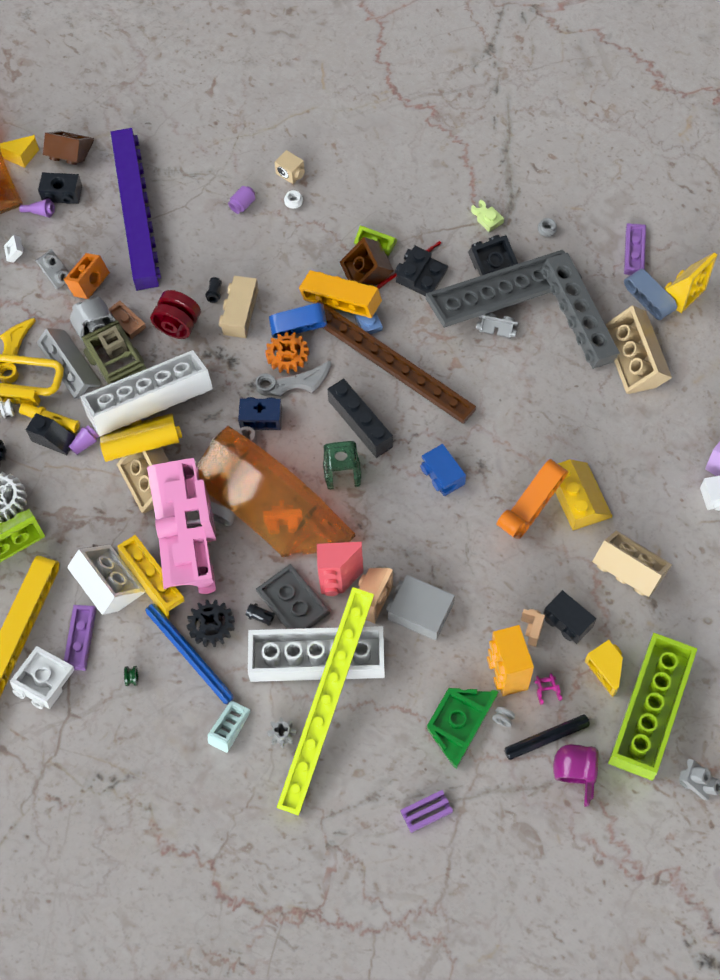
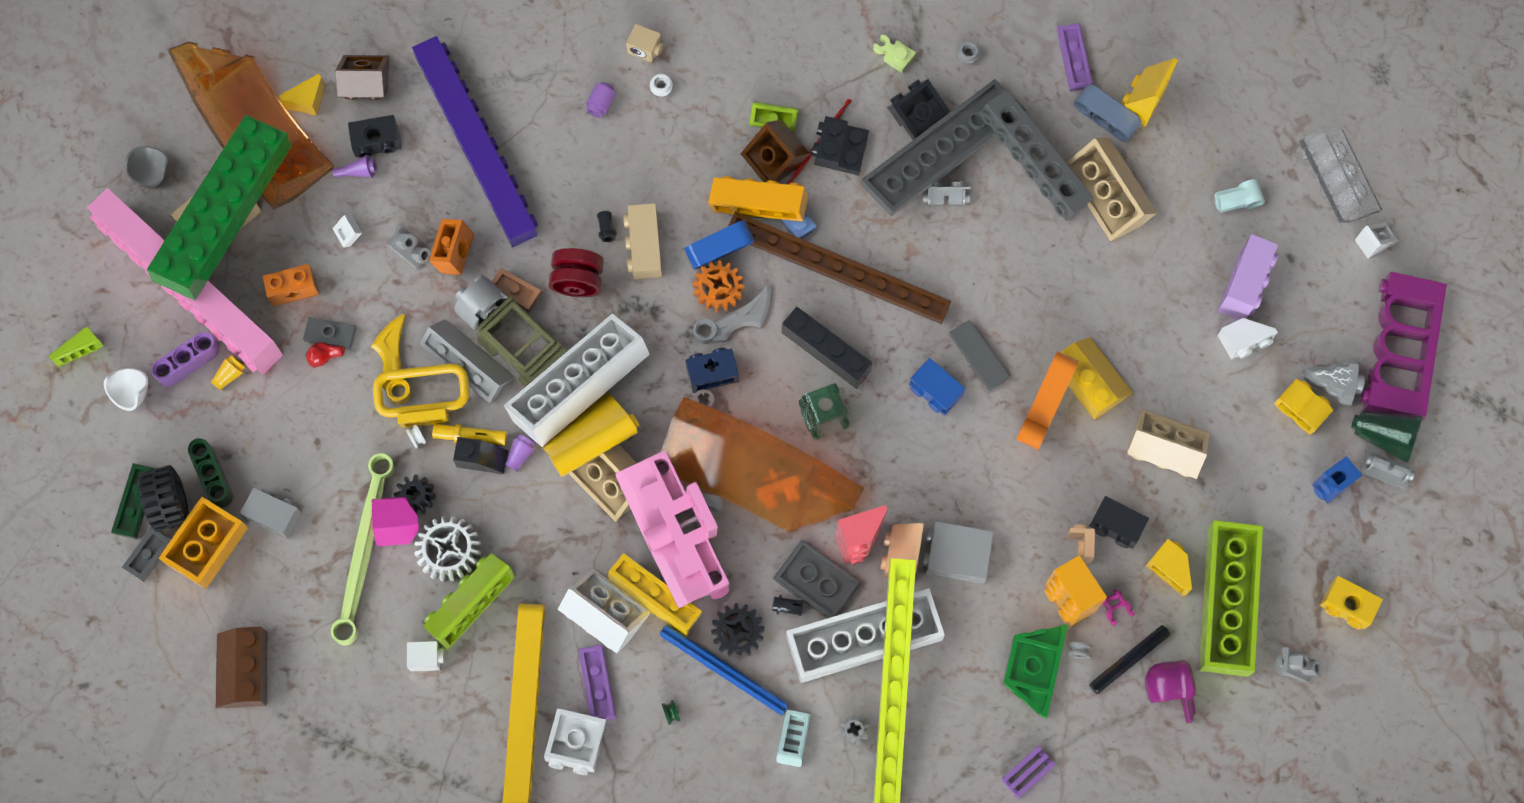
camera: 20 degrees left, 10 degrees up
(112, 342) = (513, 325): dark tan brick -> none
(487, 455) = (979, 355): none -> dark grey tile

